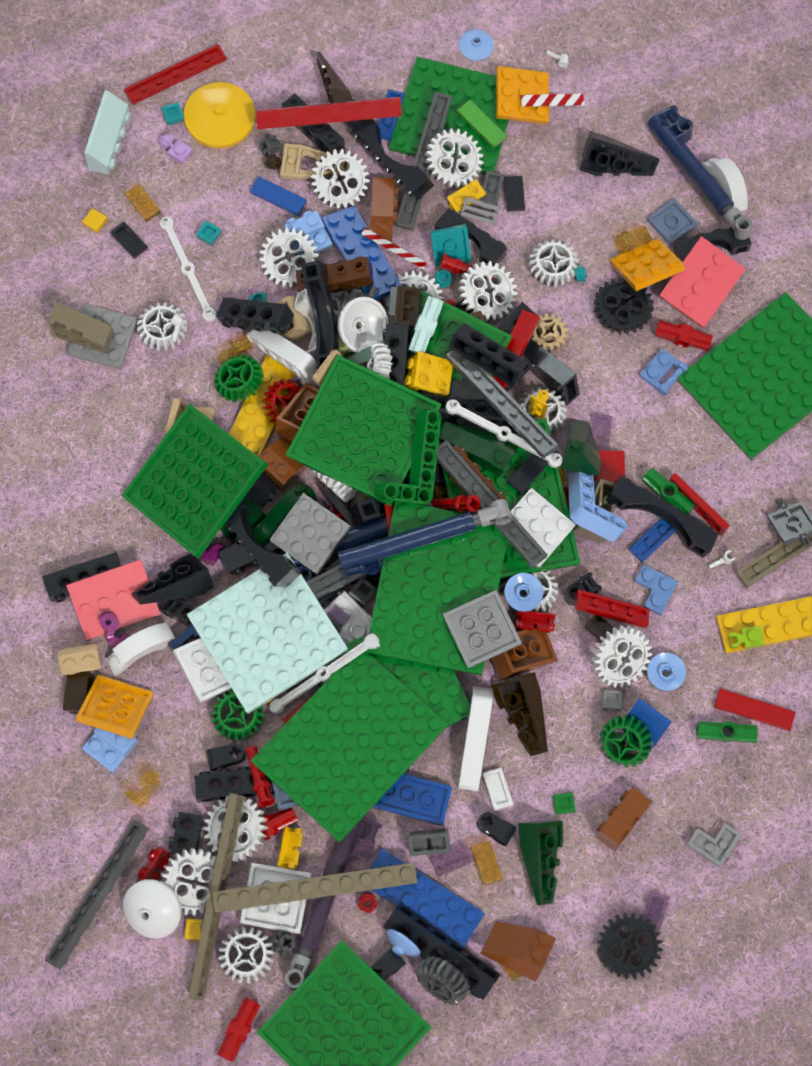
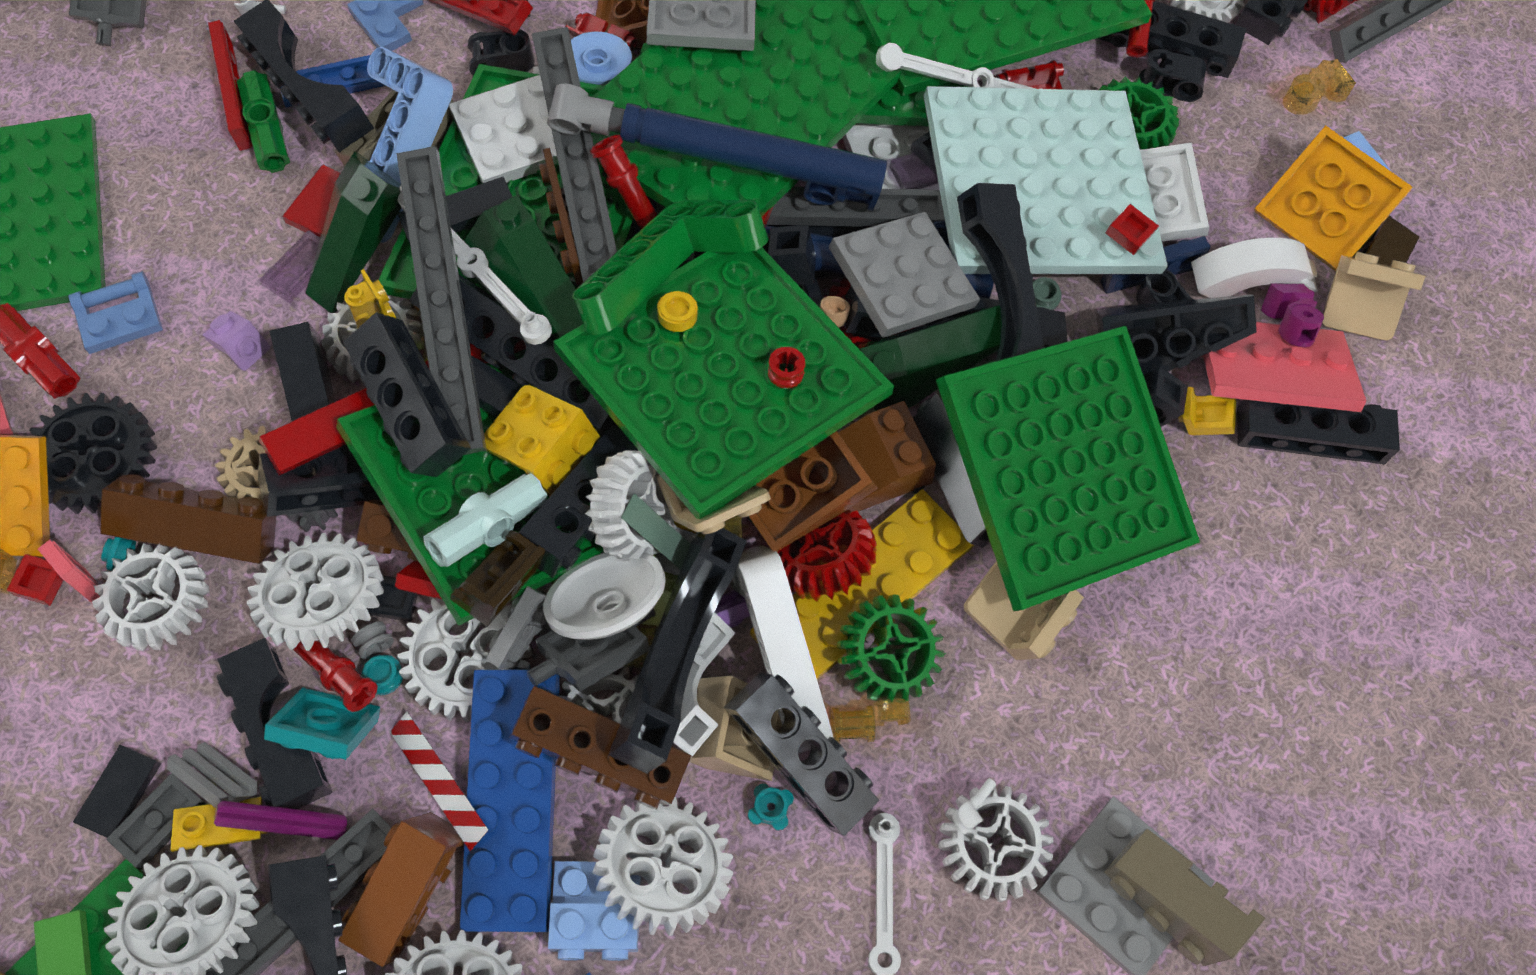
camera: 155 degrees left, 5 degrees down
(147, 557) = (1208, 414): none -> yellow bracket
(166, 549) = (1167, 395): none -> black brick
(211, 612) = (1132, 229): none -> red plate
(336, 510) = (836, 309): none -> light nougat hinge
(340, 435) = (788, 356): none -> red bush
(396, 442) = (677, 311): none -> yellow tile
(442, 206) = (280, 820): none -> magenta axle
(453, 288) = (372, 640): none -> light grey bush
(560, 293) = (187, 519): none -> reddish brown brick
(588, 252) = (69, 569): none -> coral tile
(602, 383) = (237, 339): none -> lavender bracket
(604, 249) = (35, 581): none -> red plate

